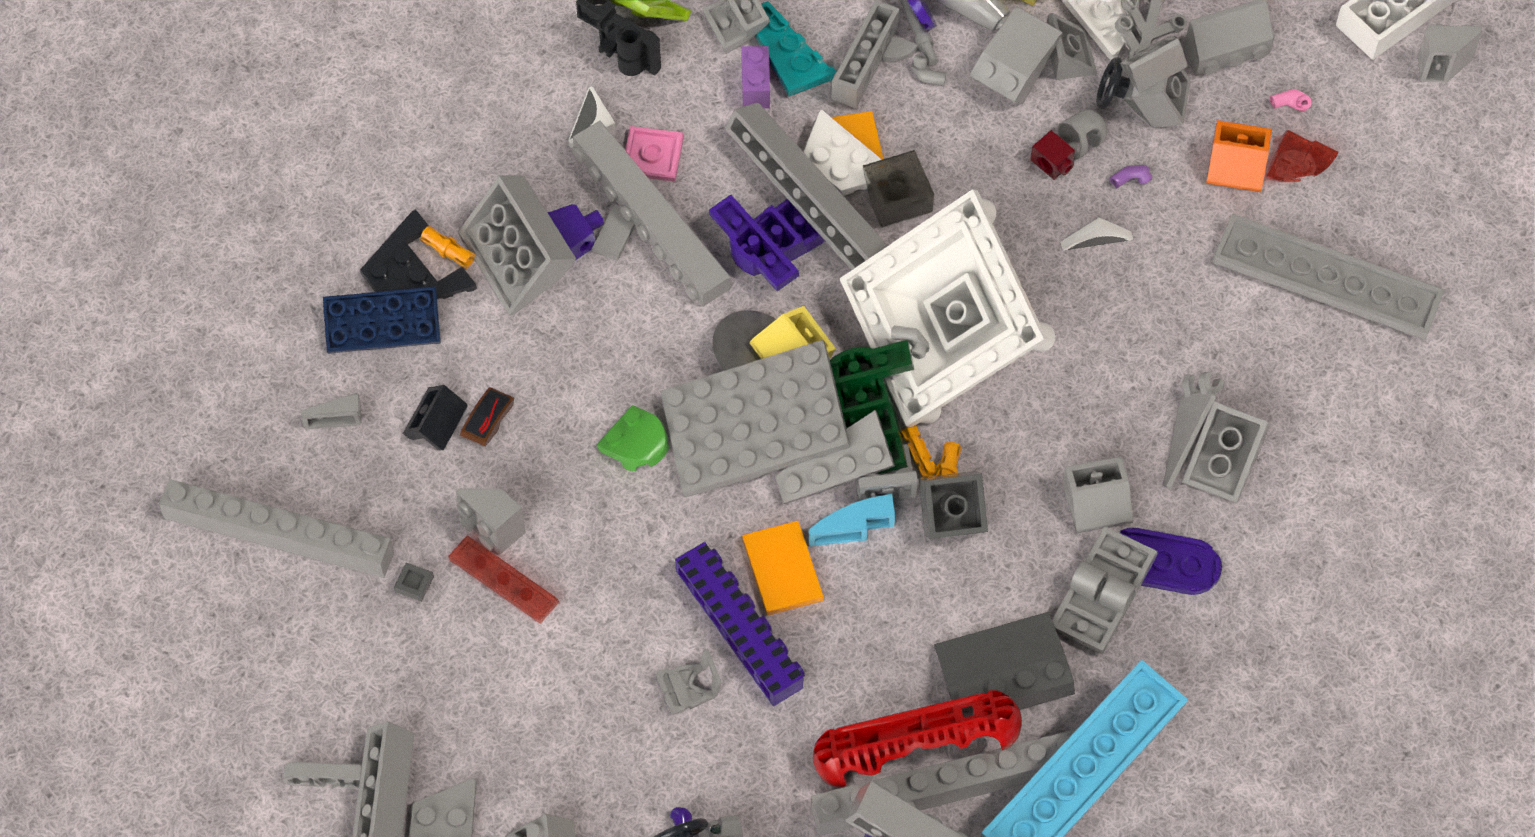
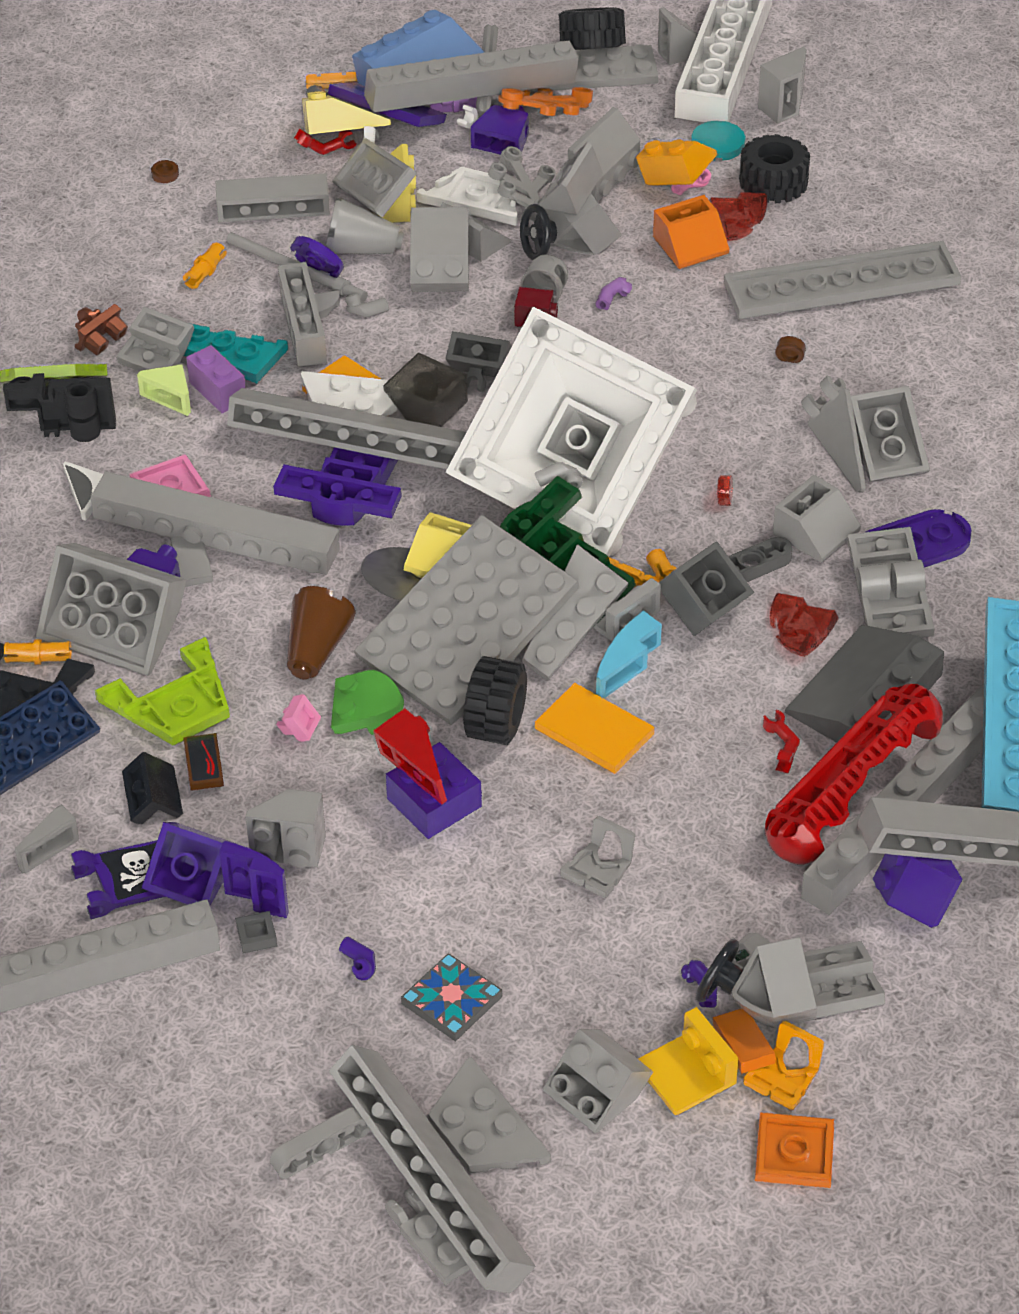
camera: 35 degrees left, 15 degrees down
(368, 477) = (119, 874): none -> flag
(409, 497) = (185, 864): none -> dark purple slope
(435, 541) = (255, 878): none -> dark purple slope
(468, 652) = (363, 958): none -> dark purple arm
(503, 579) = (348, 882): clear red tile -> none
(503, 722) = (451, 997): none -> tile
(510, 359) = (178, 707): none -> lime wing
(579, 424) = (299, 718): none -> bright pink tile
(615, 513) = (407, 746): none -> red slope
(620, 547) = (425, 812): none -> dark purple brick
(643, 358) = (316, 629): none -> reddish brown cone
(715, 503) = (495, 700): none -> black tyre
(717, 62) = (166, 387): none -> yellowish green slope
(740, 624) = (600, 788): dark purple brick -> none
(897, 686) = (791, 740): none -> red arm
(965, 176) = (477, 356): none -> dark grey brick
(1010, 579) = (800, 625): none -> clear red brick
(1029, 491) = (770, 555): none -> dark grey beam
(1055, 421) = (725, 490): none -> clear red tile
(1096, 233) = (632, 338): white tile -> none
(1223, 320) = (790, 349): none -> reddish brown tile
(1286, 76) = (674, 162): none -> light orange slope
(1351, 71) = (722, 136): none -> teal tile
(1360, 148) = (775, 167): none -> black tyre

